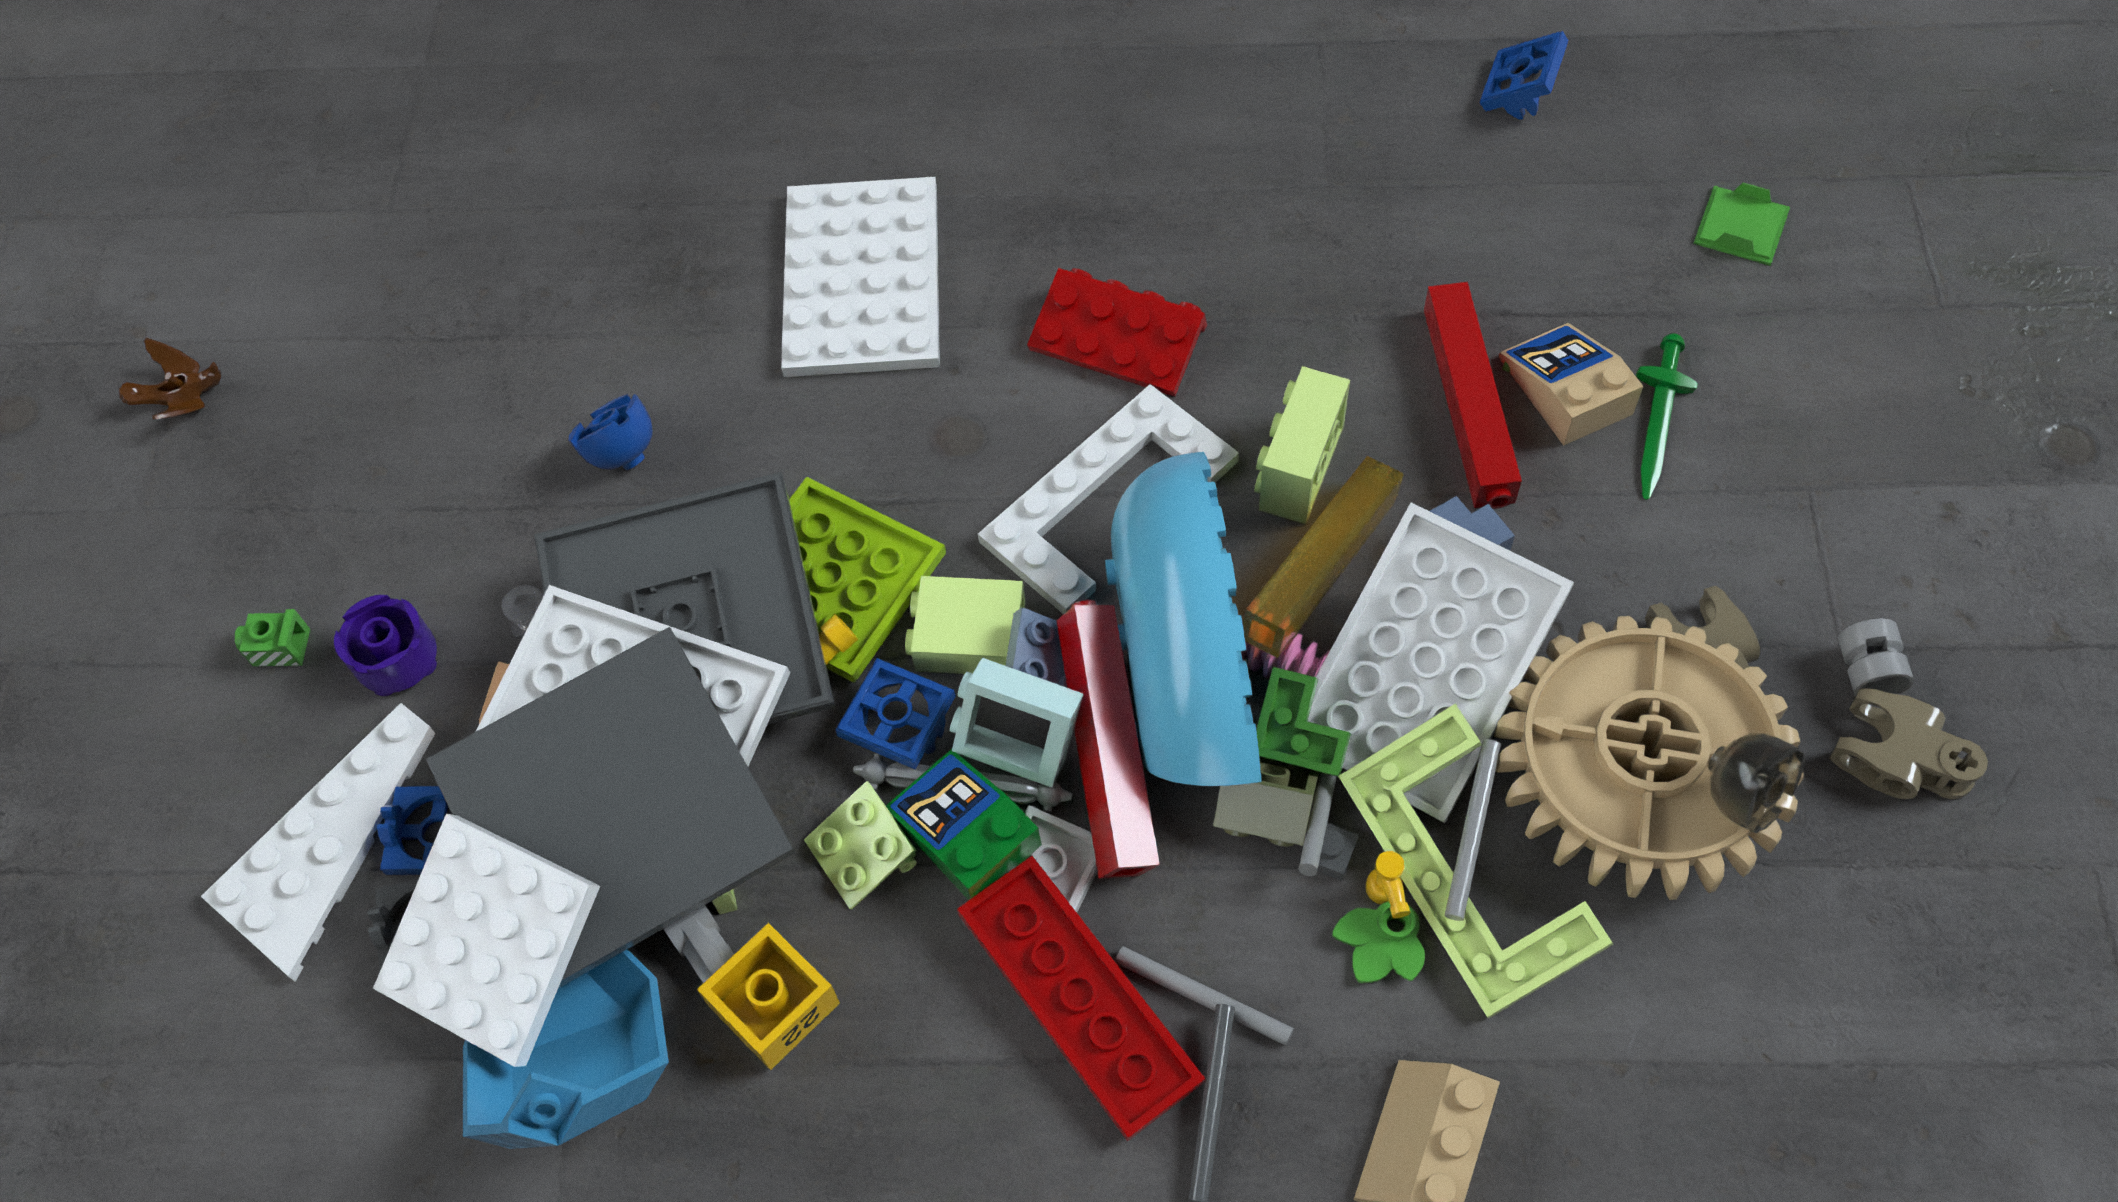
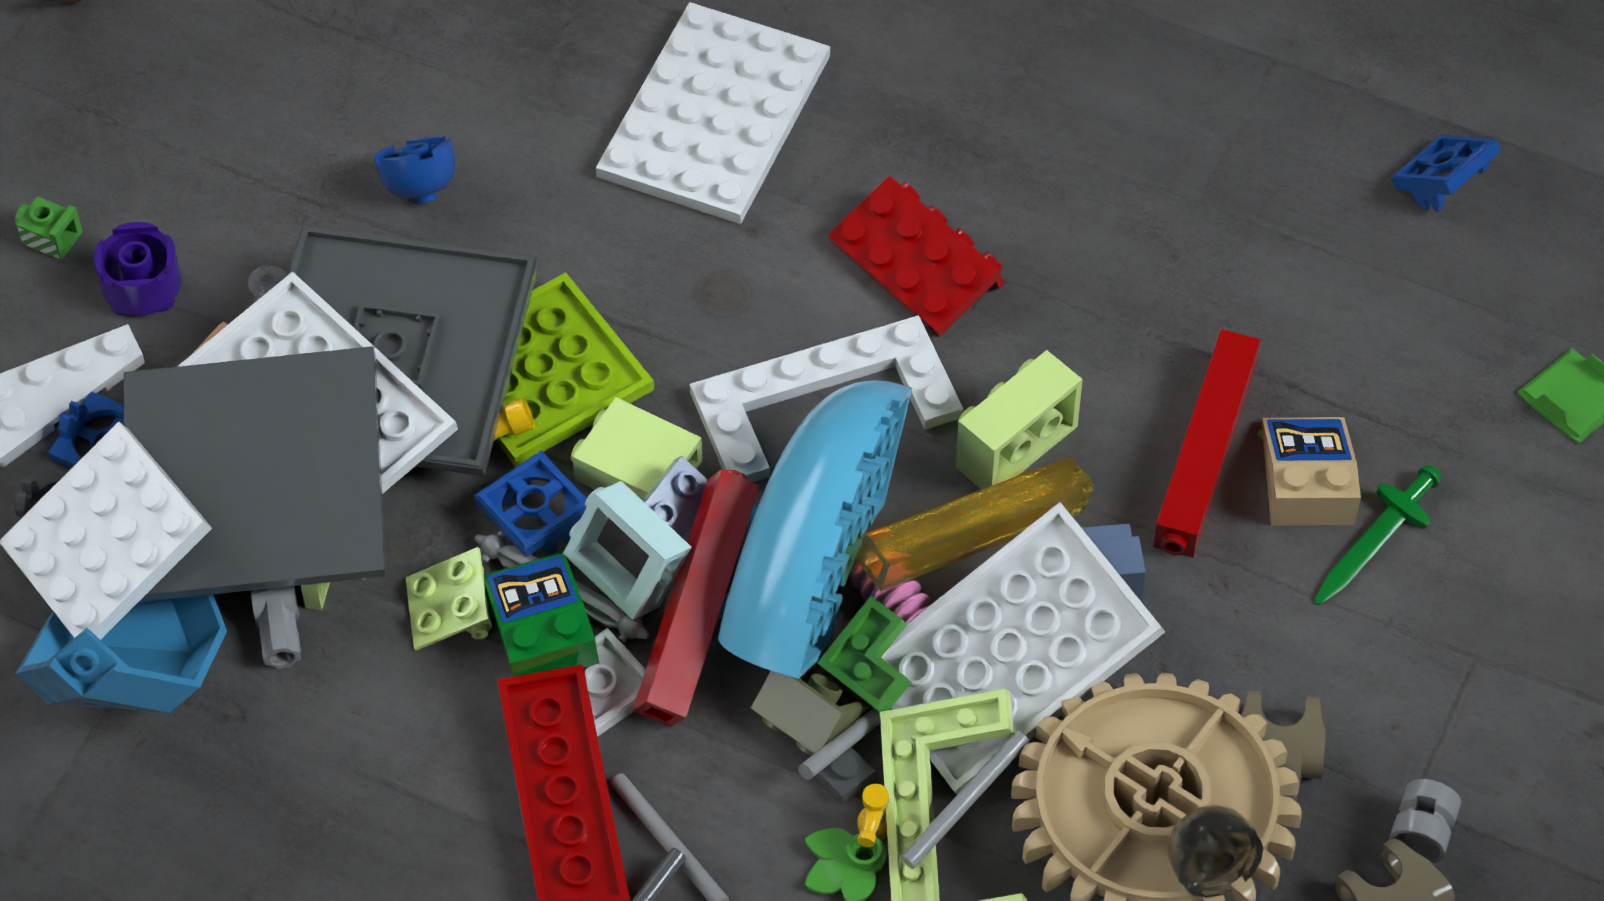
camera: 20 degrees right, 5 degrees down
(769, 996) = (309, 682): yellow brick -> none

